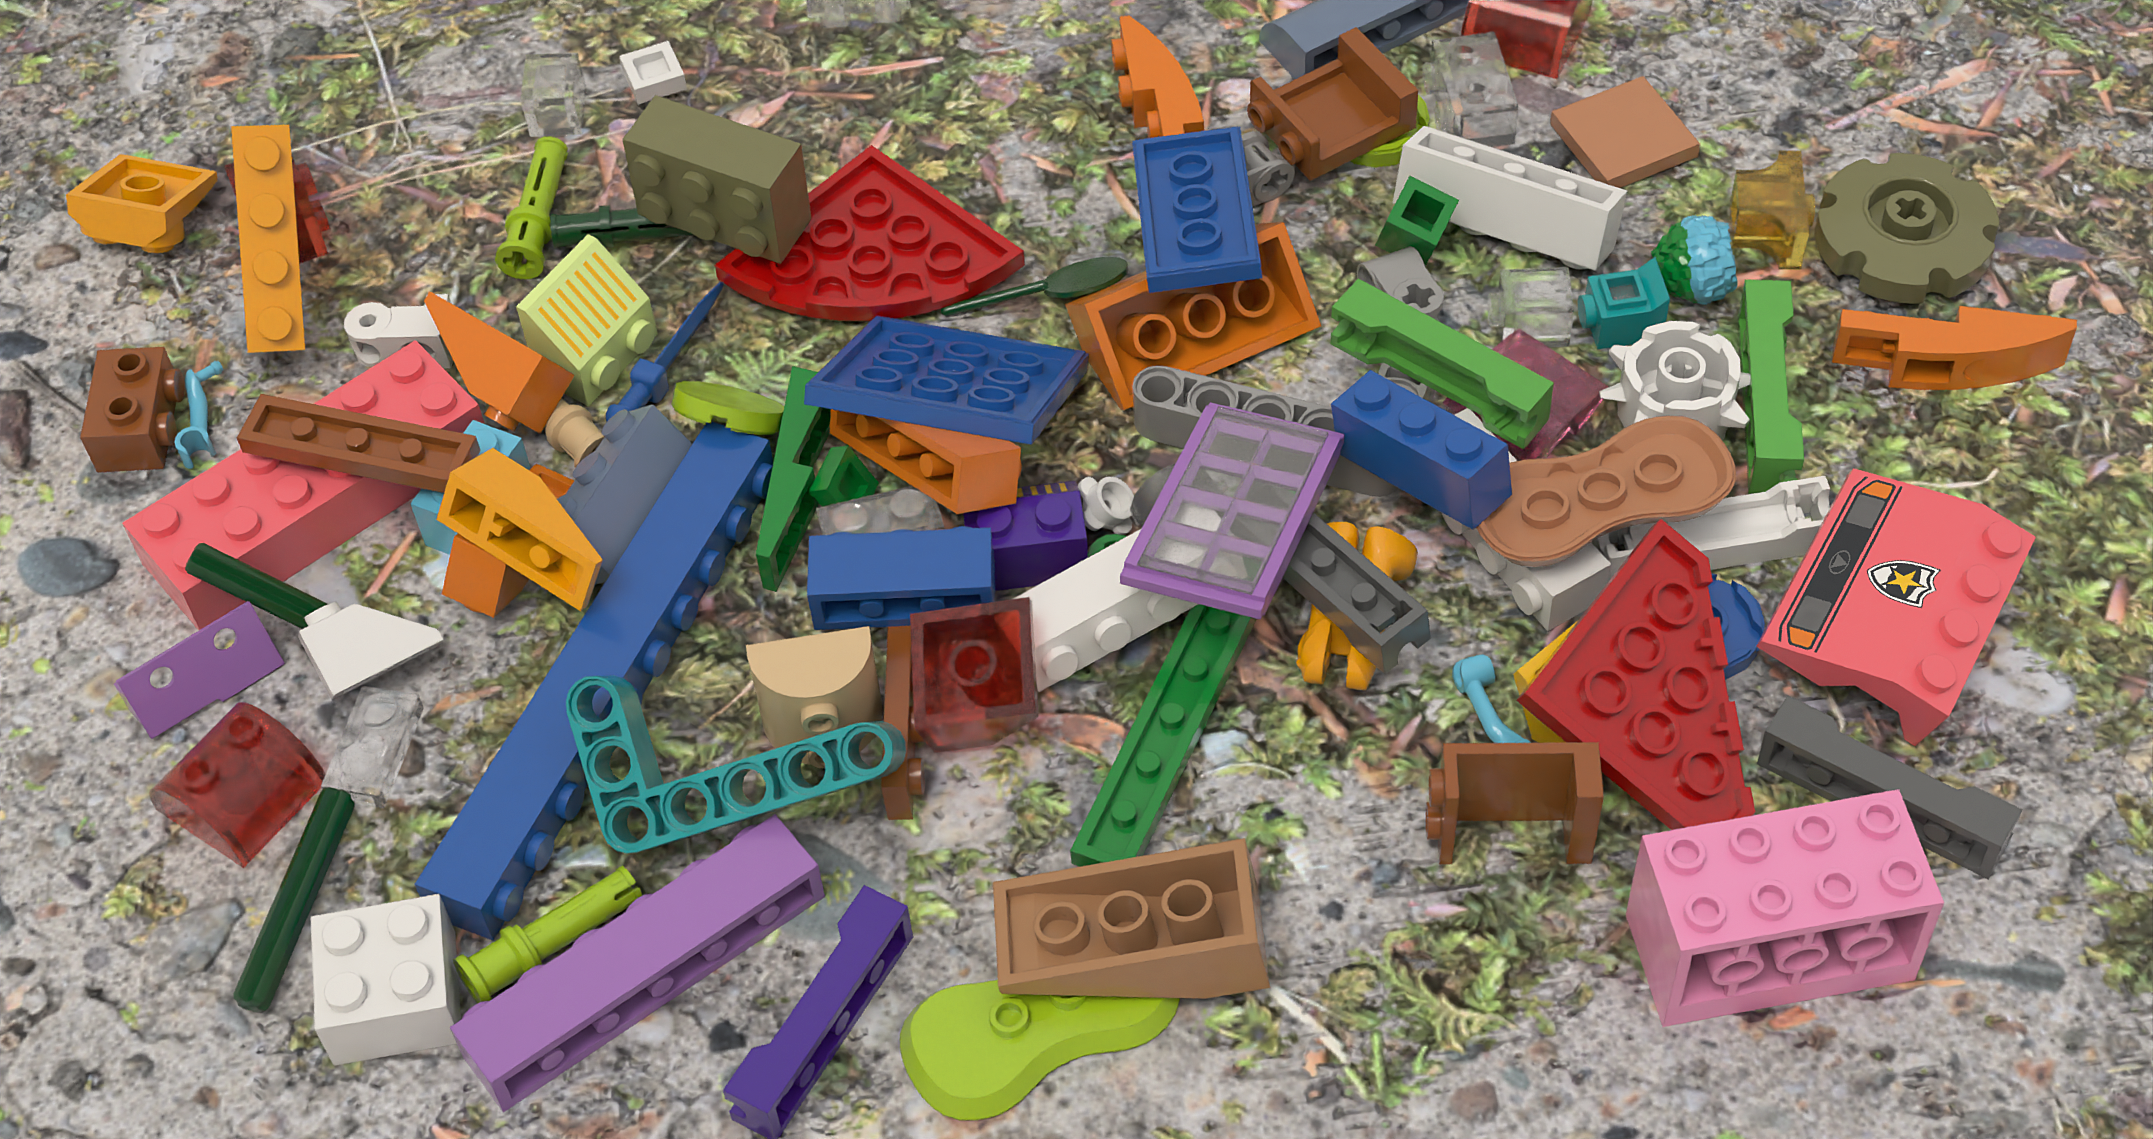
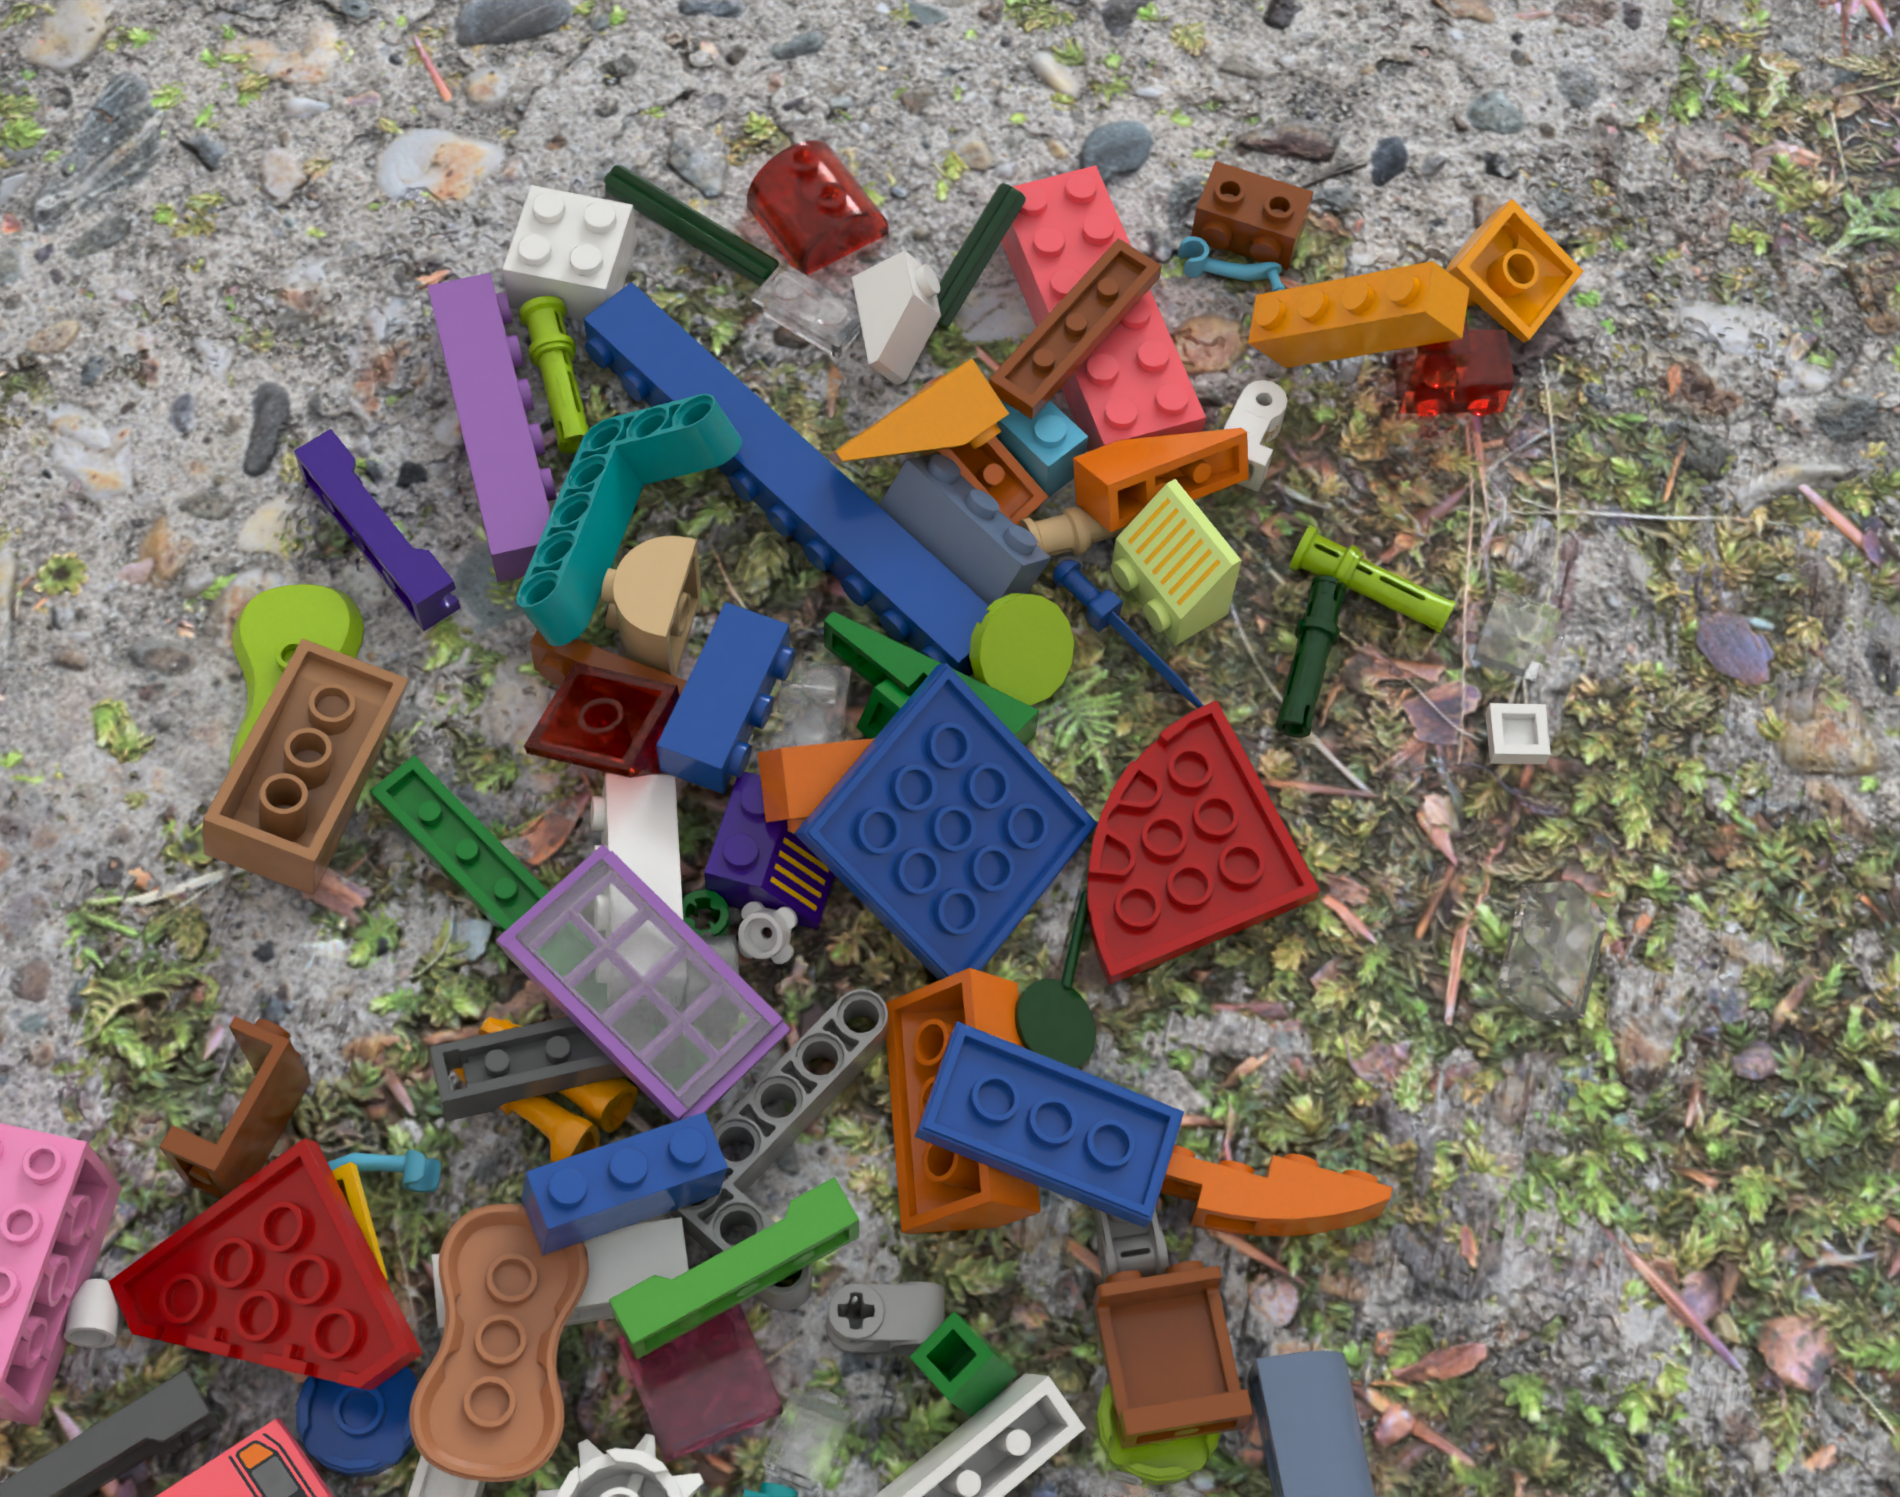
camera: 105 degrees right, 10 degrees up
(200, 671) = (932, 199): medium lavender piece -> none
(718, 179) = (1280, 699): olive brick -> none

